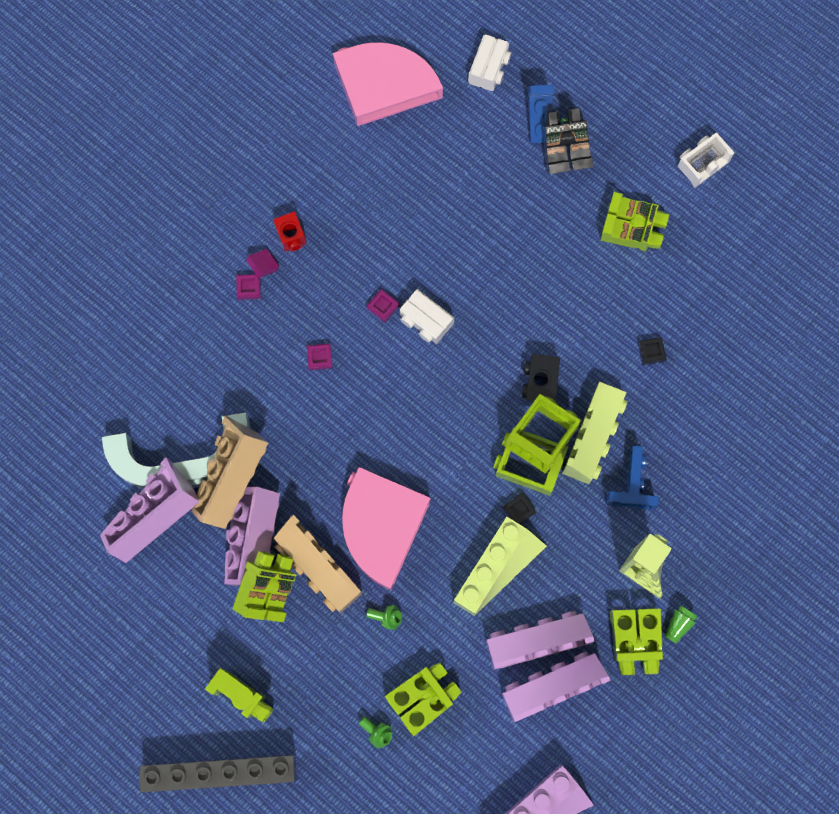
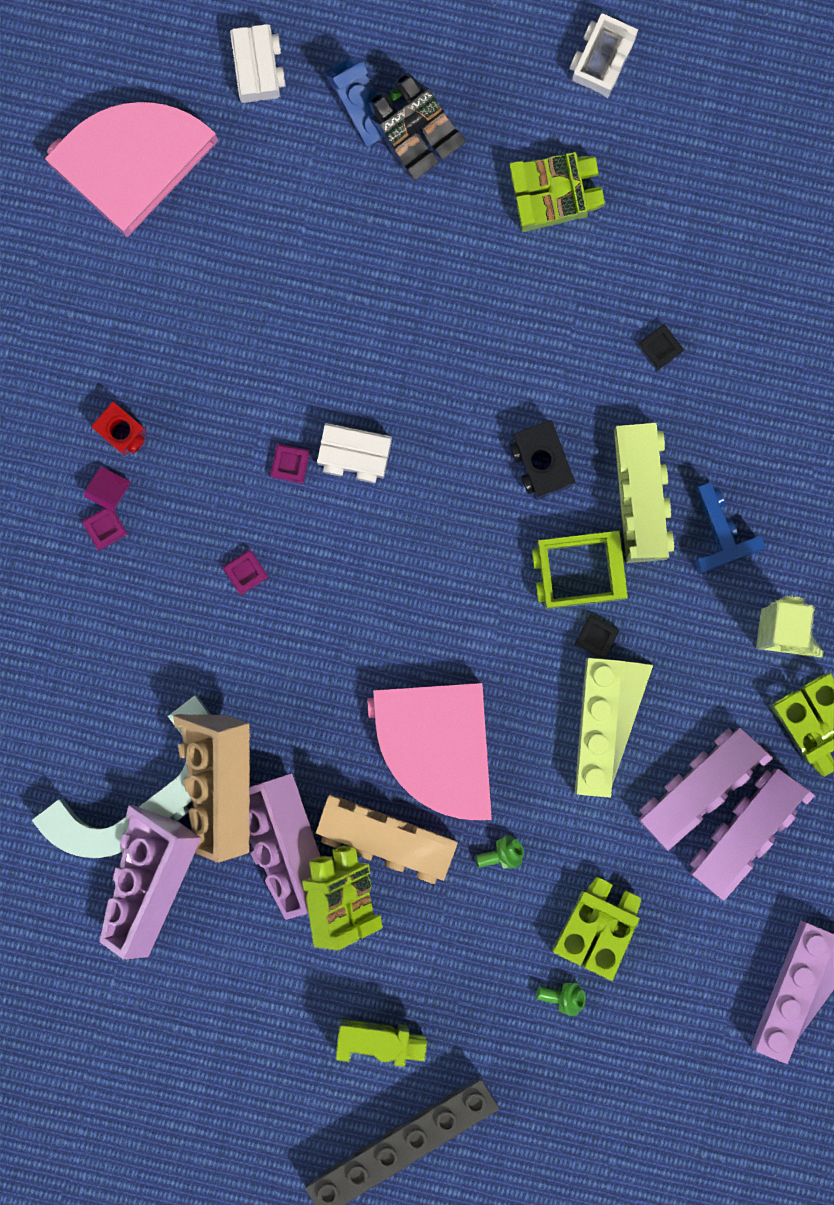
camera: 25 degrees left, 10 degrees up
(531, 452) = (577, 564): lime window -> none

